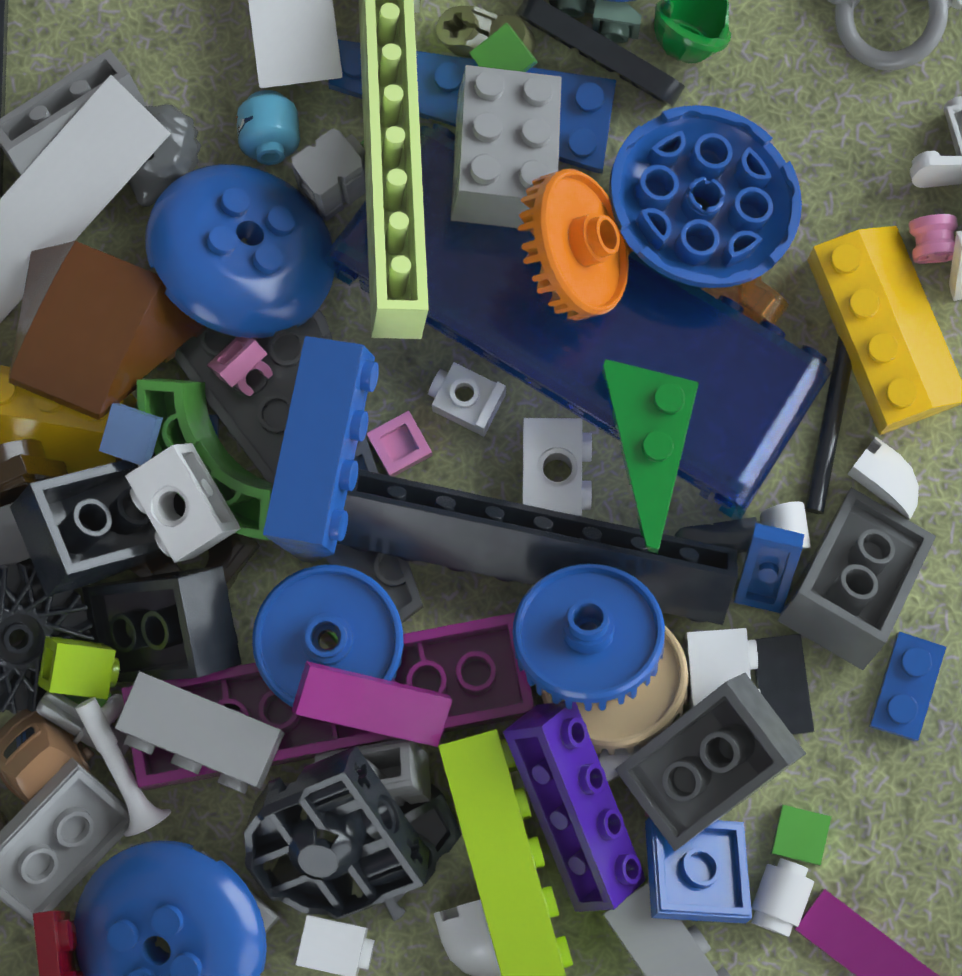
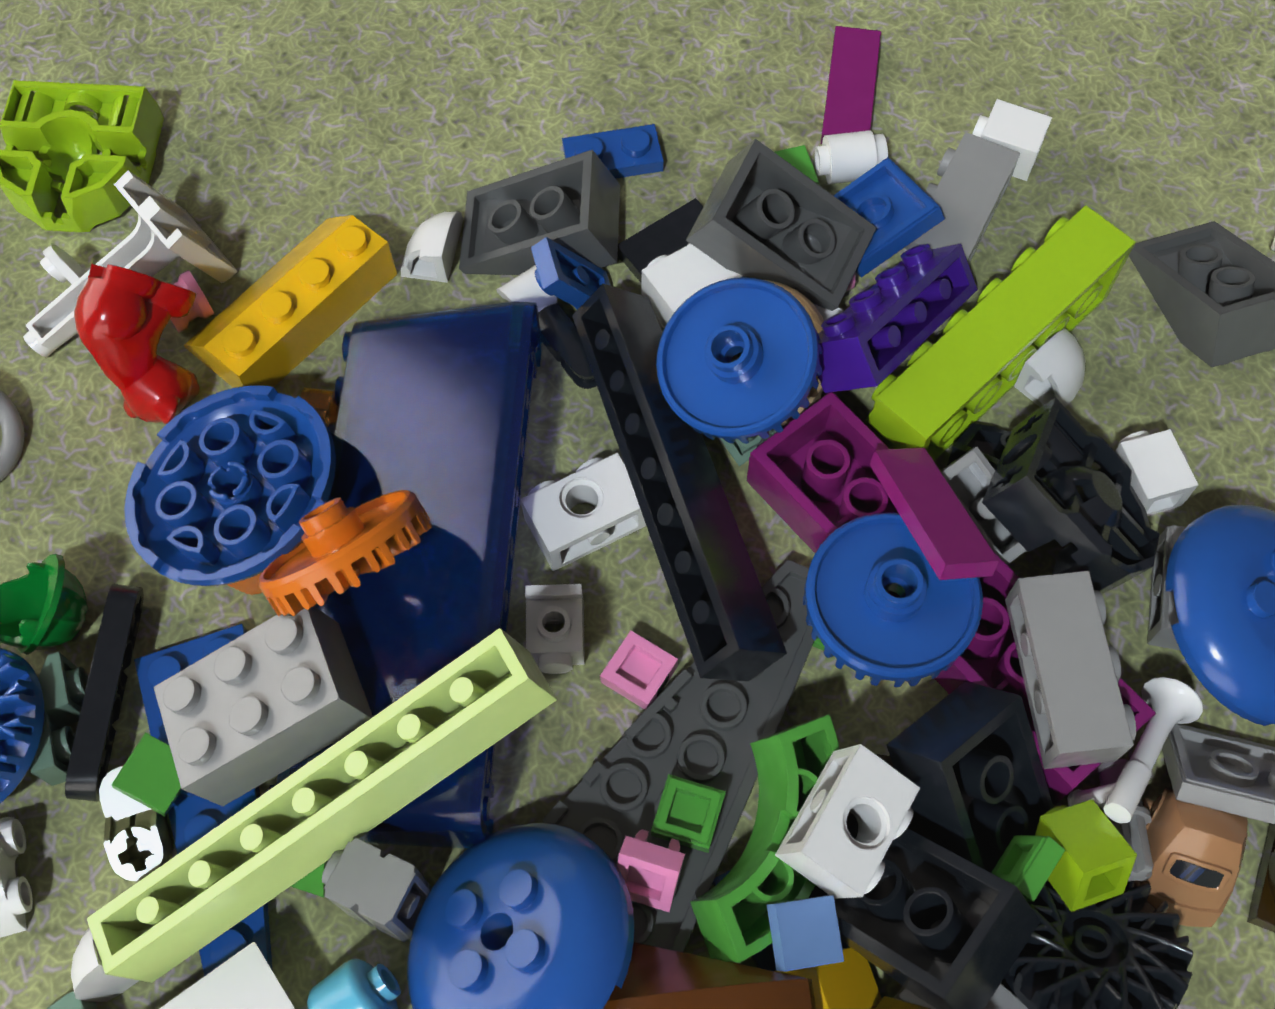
camera: 120 degrees left, 15 degrees down
(89, 617) = (1029, 863): none -> bright green tile
(264, 415) = (688, 813): none -> bright green tile
(320, 448) = (709, 679): blue slope -> none
(652, 425) = (505, 397): green wing -> none
(829, 430) = (447, 300): black bar -> none
(900, 168) = (121, 324): none -> red animal

